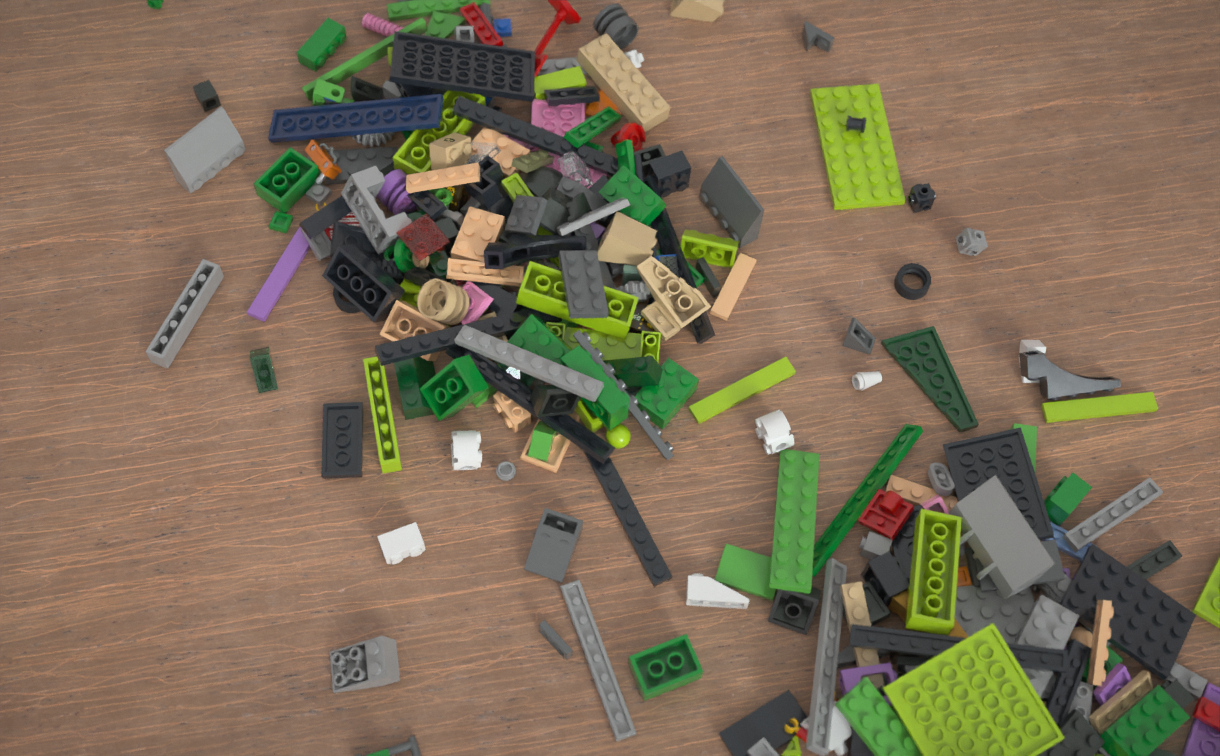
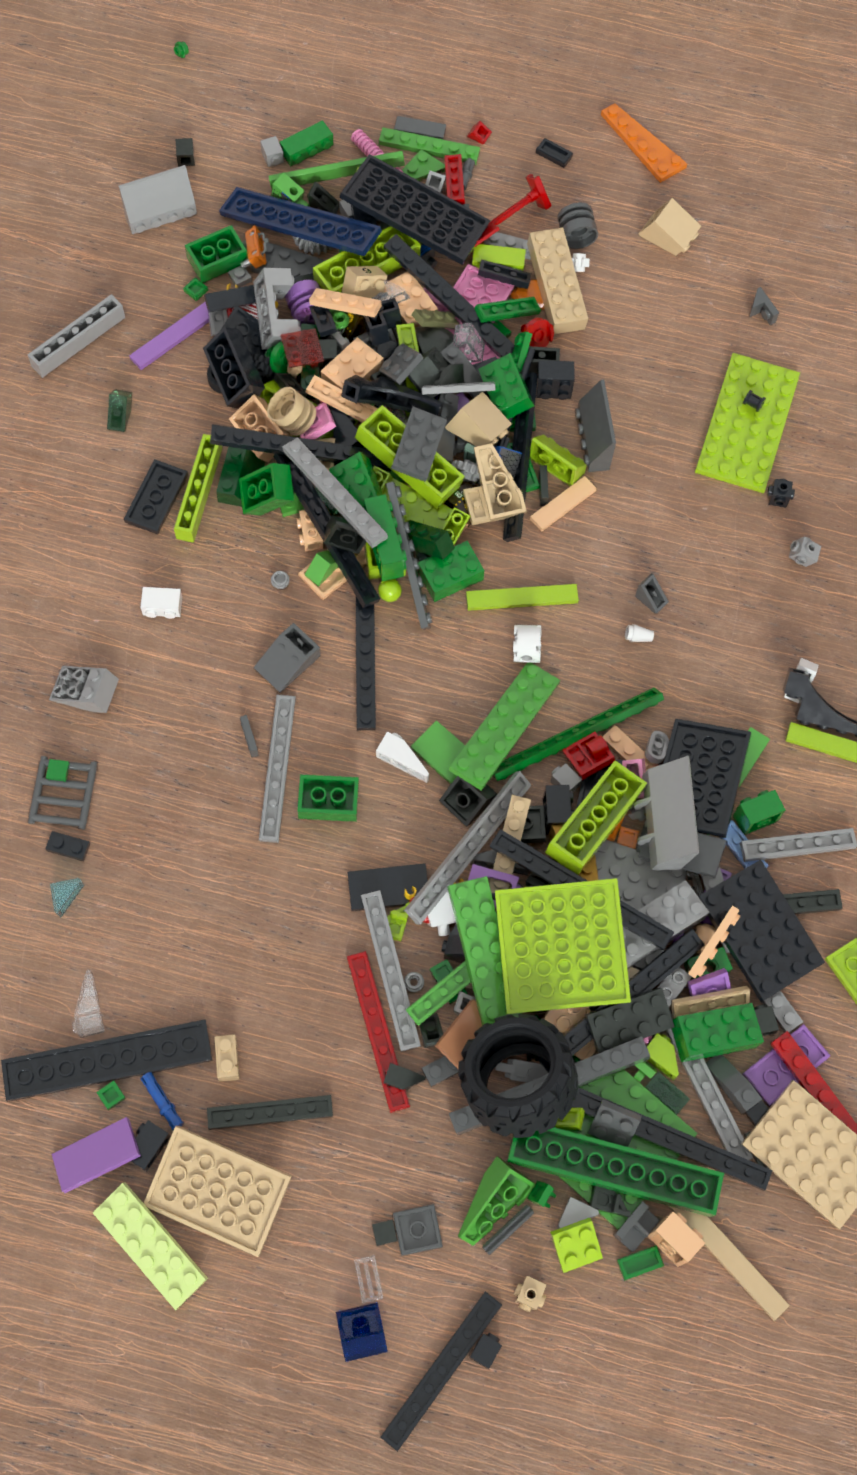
camera: 25 degrees right, 5 degrees up
(292, 64) = (272, 151): none -> light grey brick
(465, 450) = (252, 547): white brick -> none
(503, 27) = (476, 188): blue plate -> none
(906, 292) = (735, 553): black tyre -> none
(928, 365) = (702, 645): dark green wing -> none

